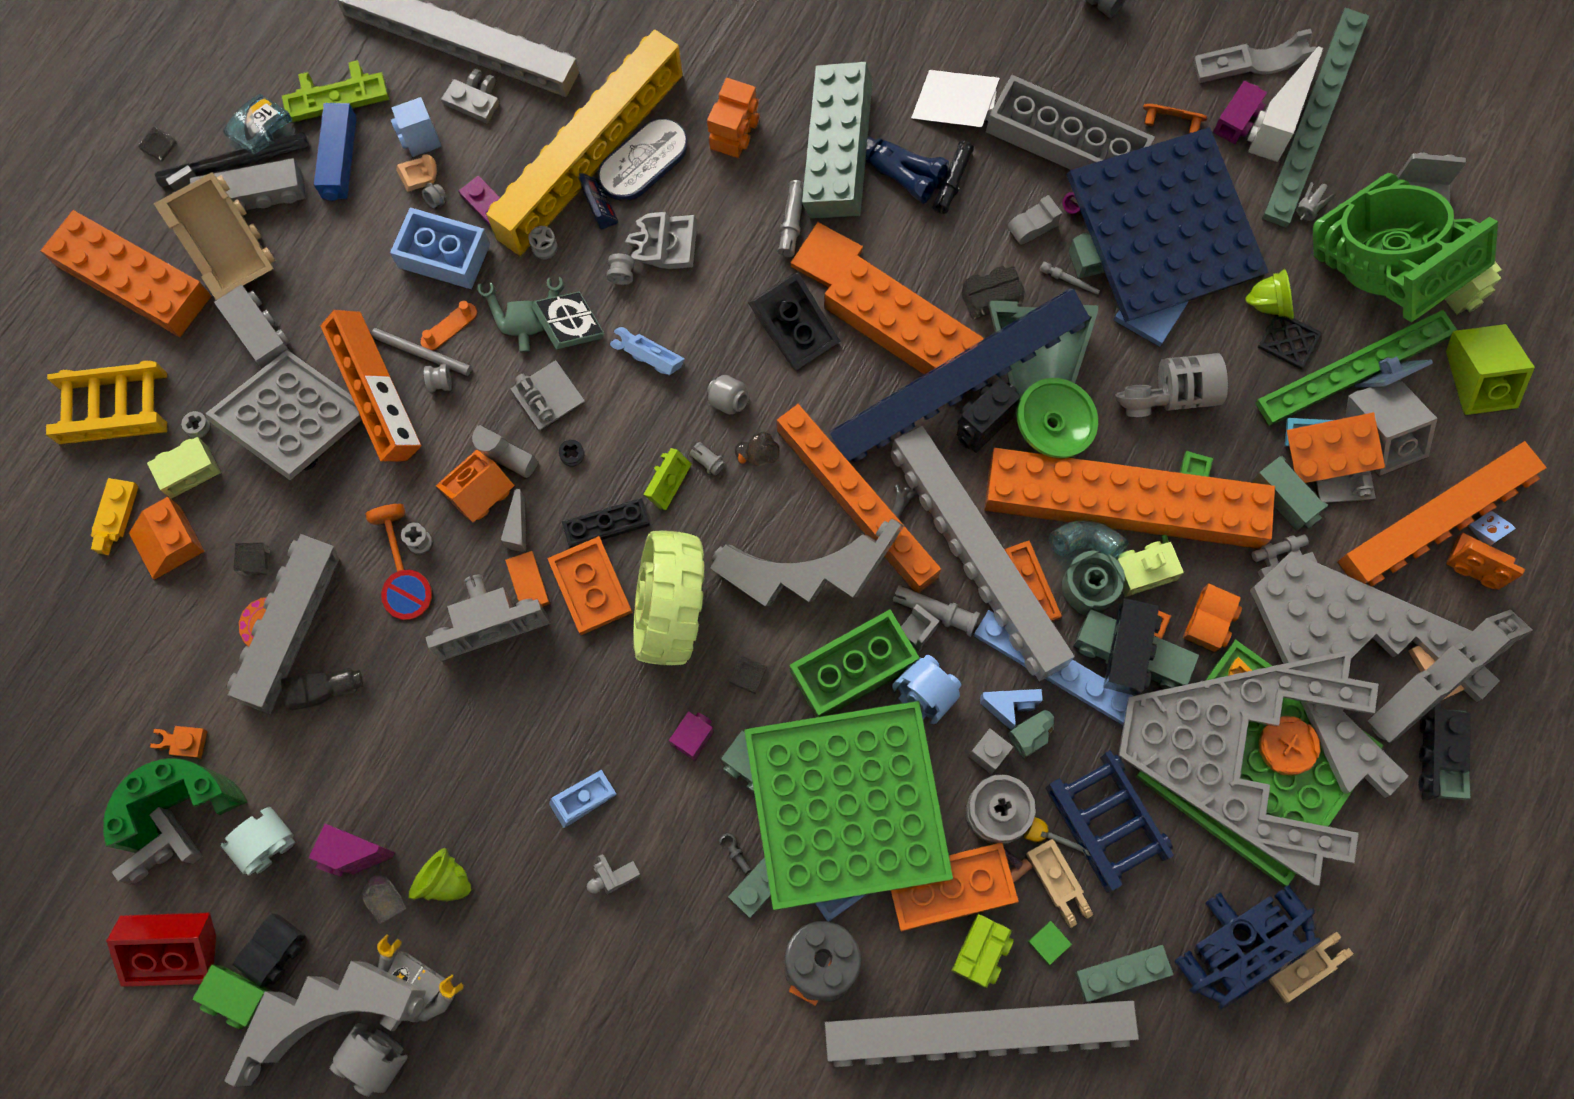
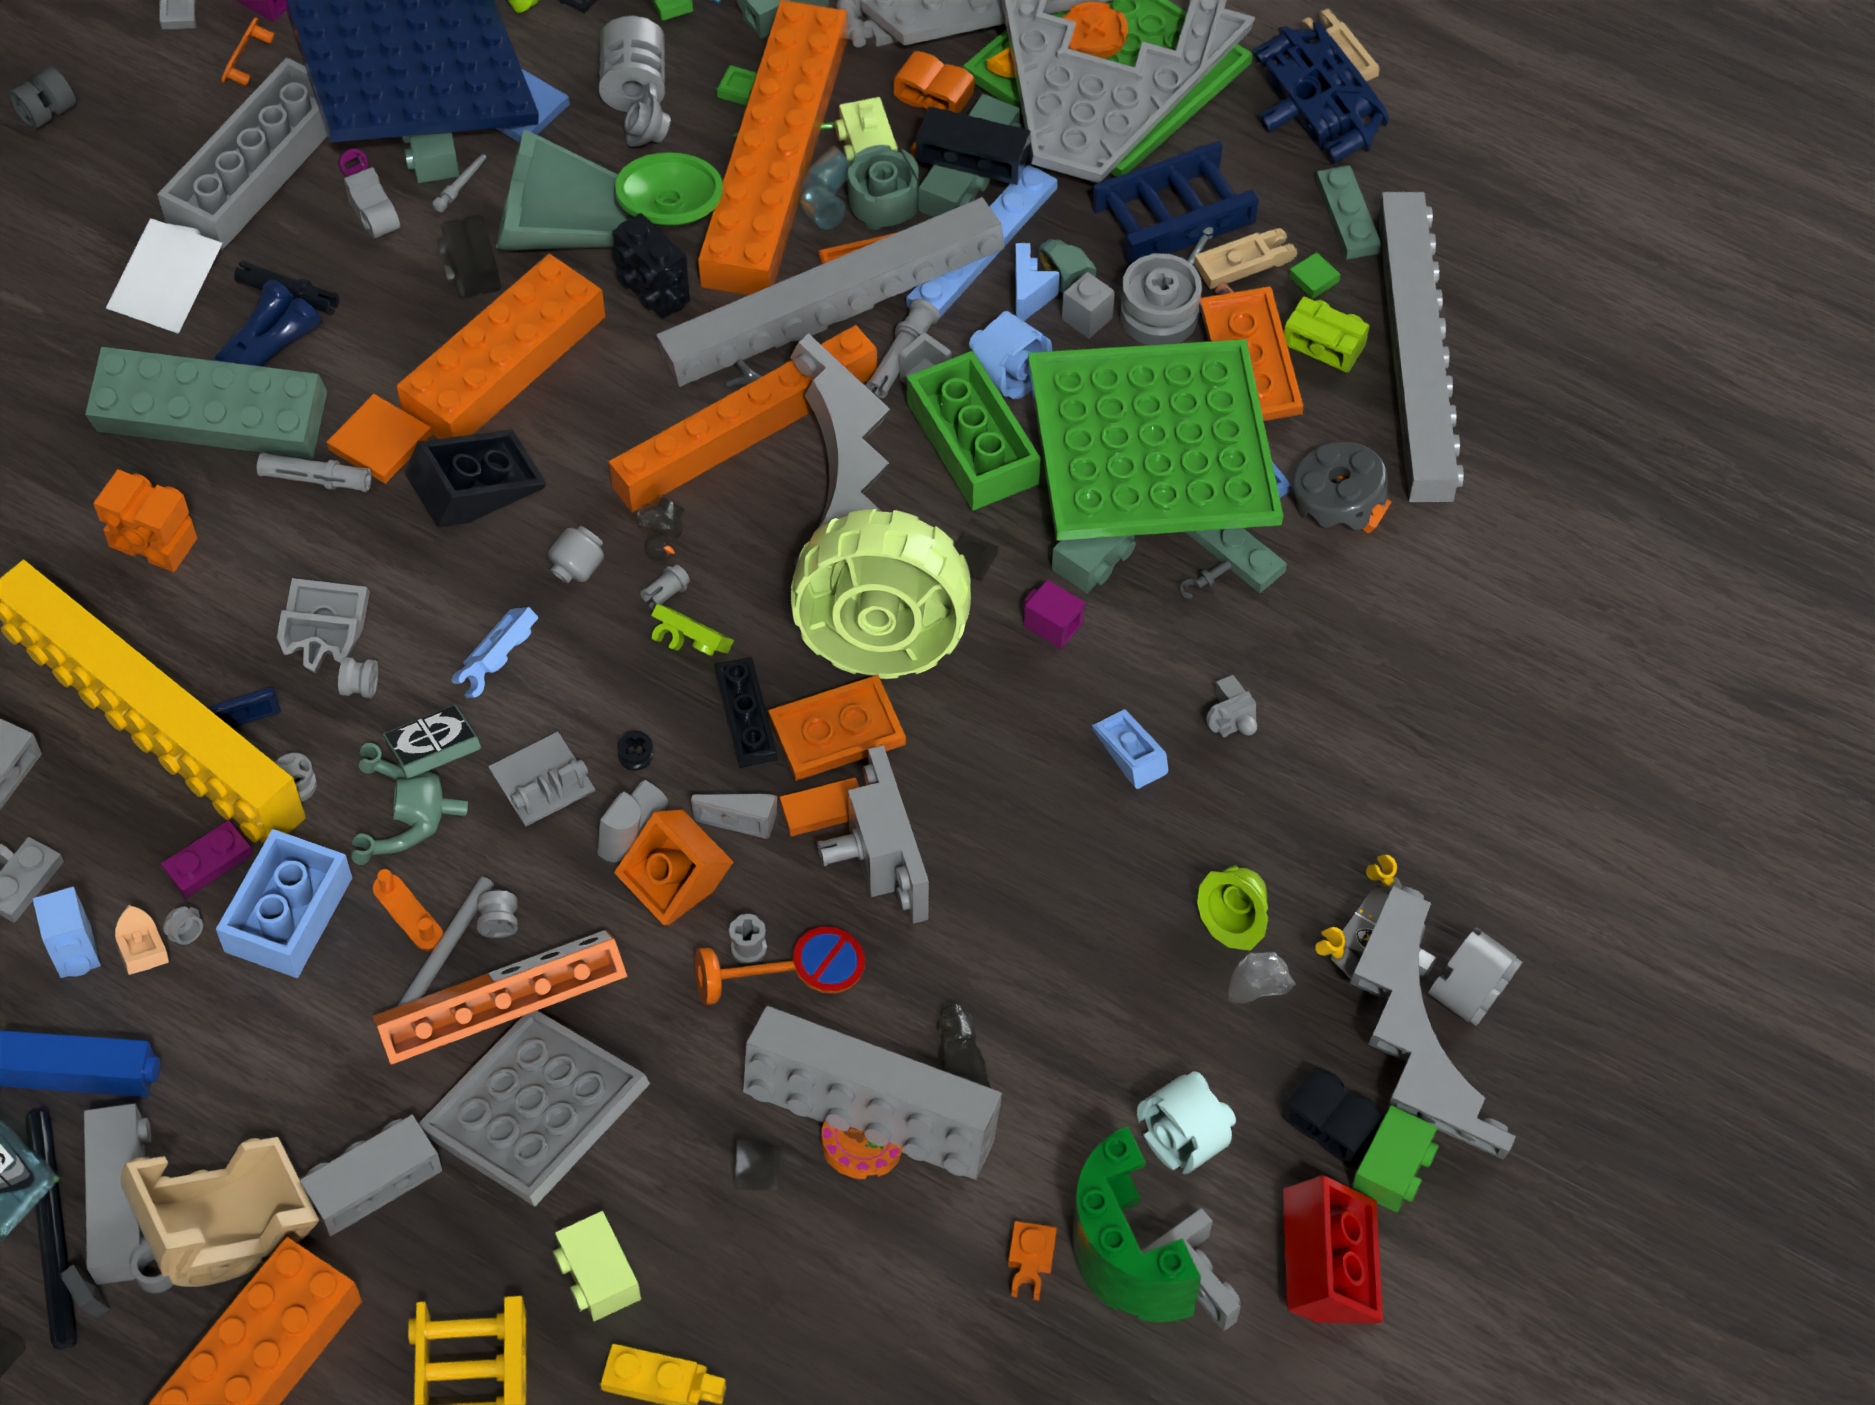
camera: 90 degrees left, 15 degrees down
(164, 537) = (712, 1290): orange slope -> none
(187, 425) = (528, 1250): light grey bush -> none
(343, 852) = (1202, 1006): magenta slope -> none
(643, 159) = (179, 645): white tile -> none
(960, 374) = (599, 275): dark blue brick -> none

